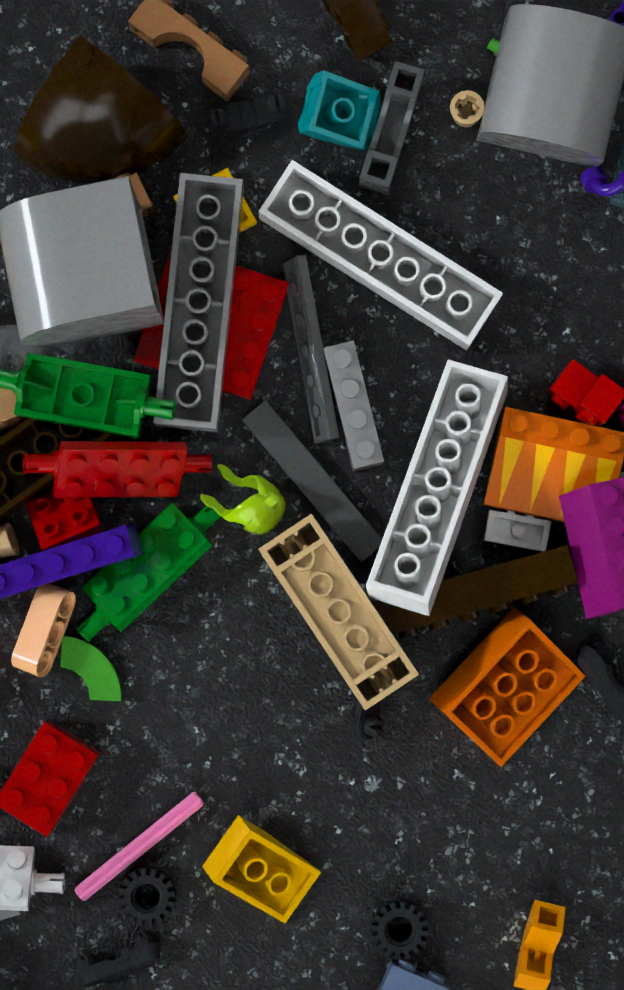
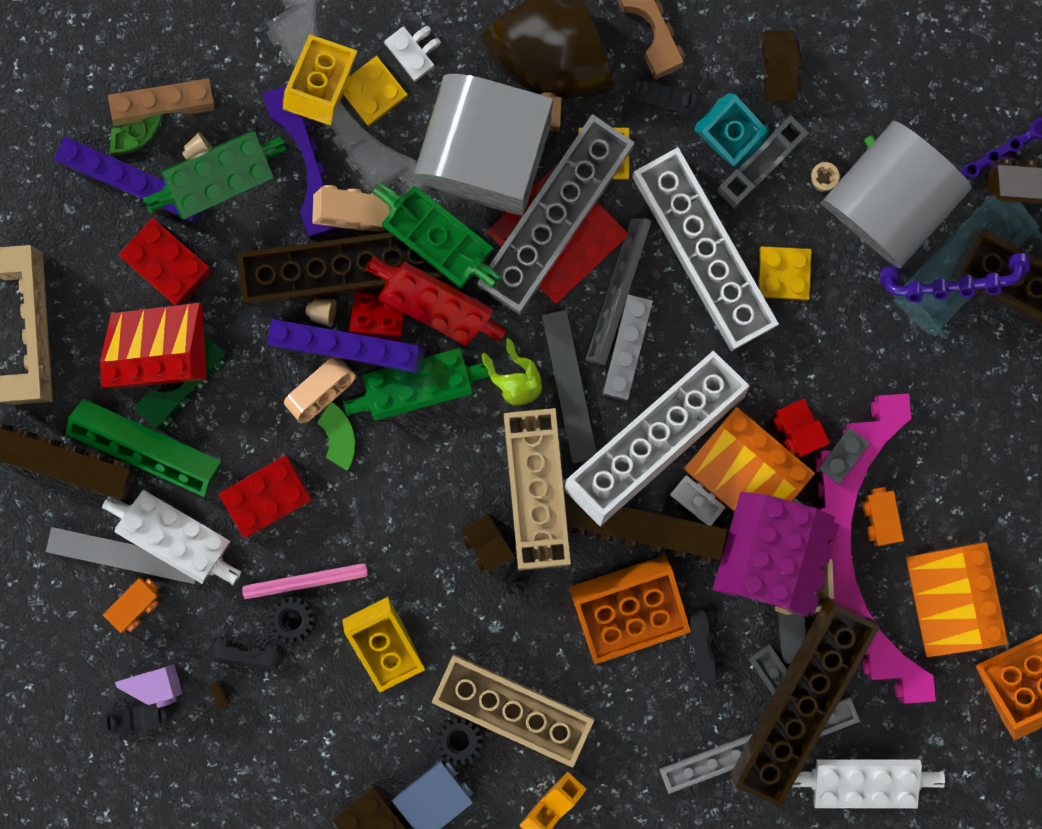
camera: 30 degrees right, 0 degrees up
(316, 699) = (487, 542): none -> dark brown brick
(440, 865) = (513, 710): none -> tan brick
(478, 235) = (784, 273): none -> yellow plate

